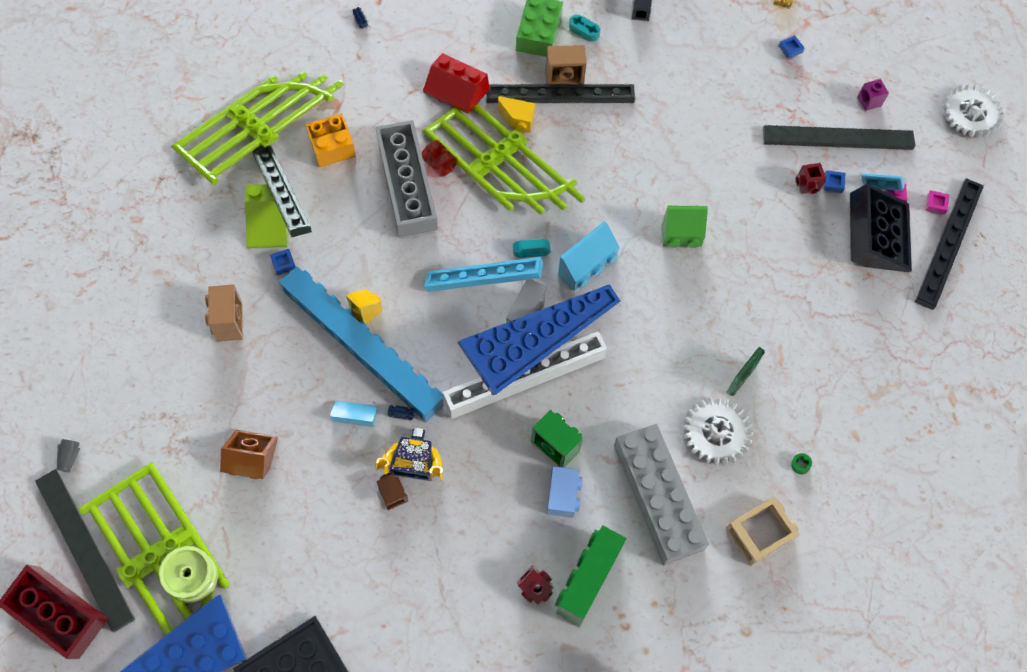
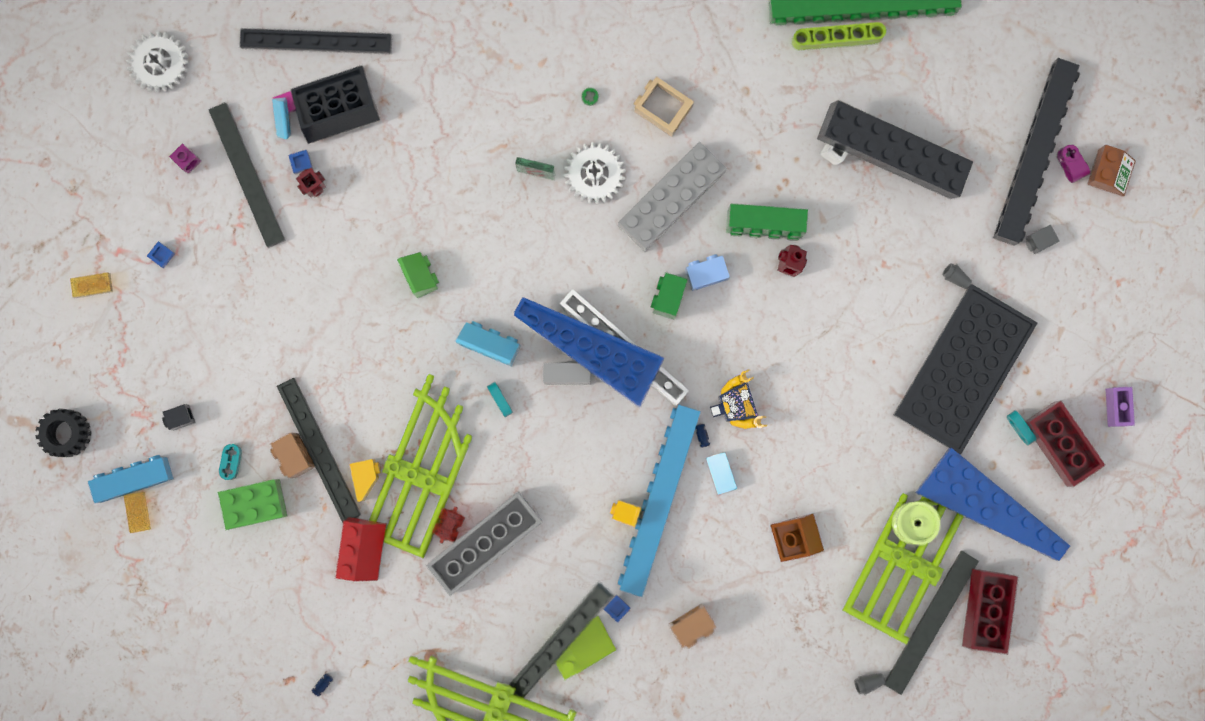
camera: 110 degrees left, 20 degrees up
(330, 140) = (476, 634): light orange slope -> none
(392, 491) = (772, 407): reddish brown window -> none
(484, 274) = (554, 423): medium azure plate -> none
(937, 202) = (279, 64): dark pink plate -> none

